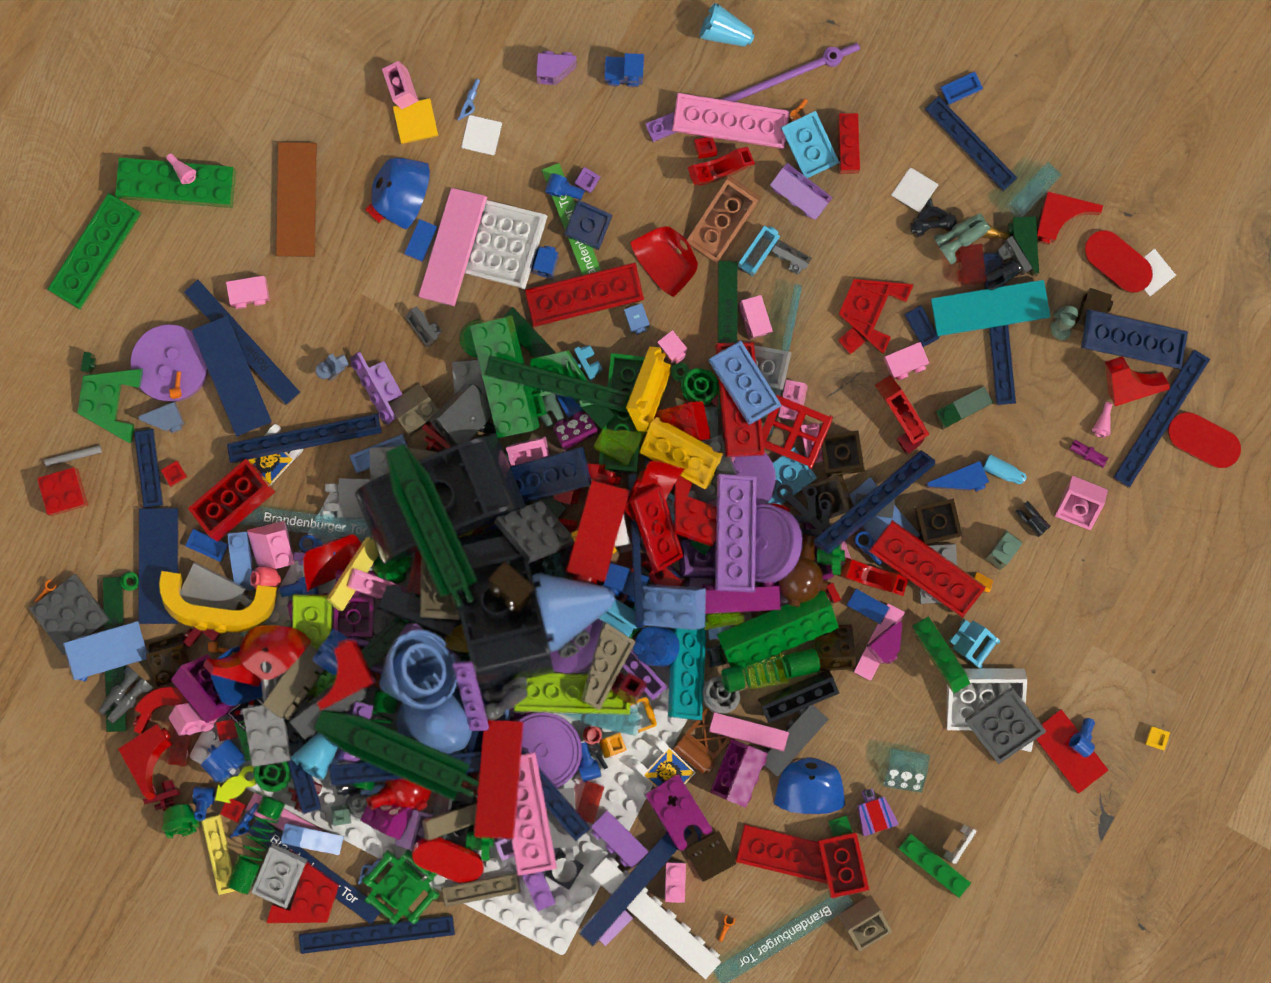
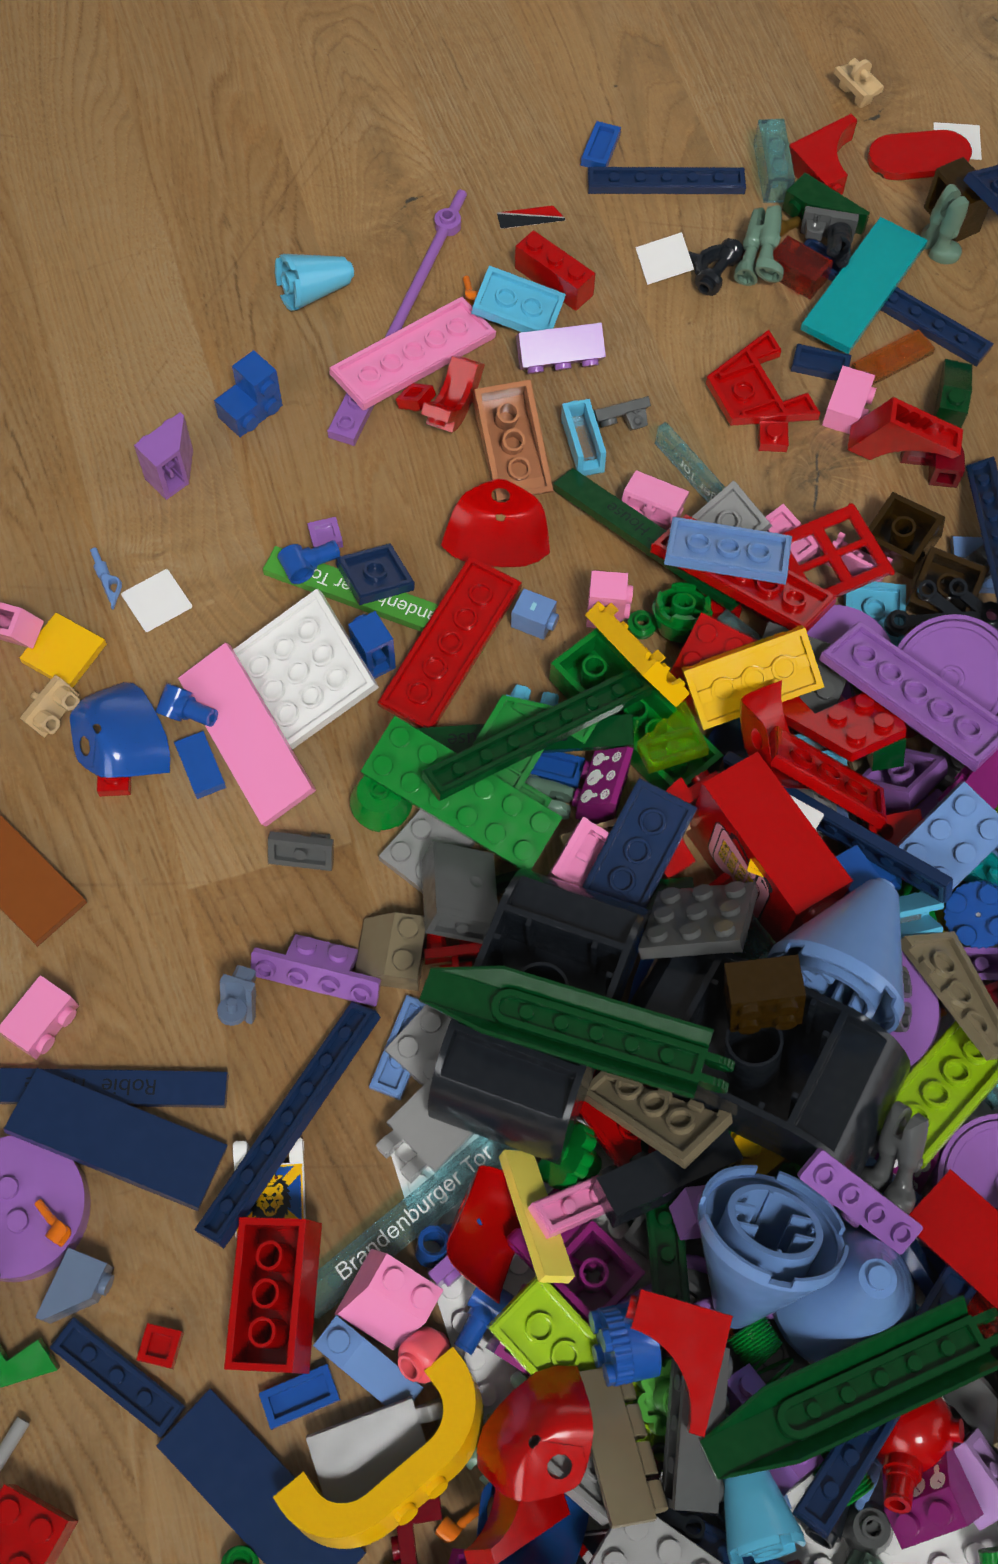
camera: 40 degrees left, 20 degrees down
(382, 146) = (50, 706): none -> tan hips
(436, 203) = (179, 705): none -> blue pin
(878, 94) = (529, 217): none -> sticker
(959, 359) = (895, 356): none -> clear orange tile
(1138, 187) = (856, 78): none -> tan hips

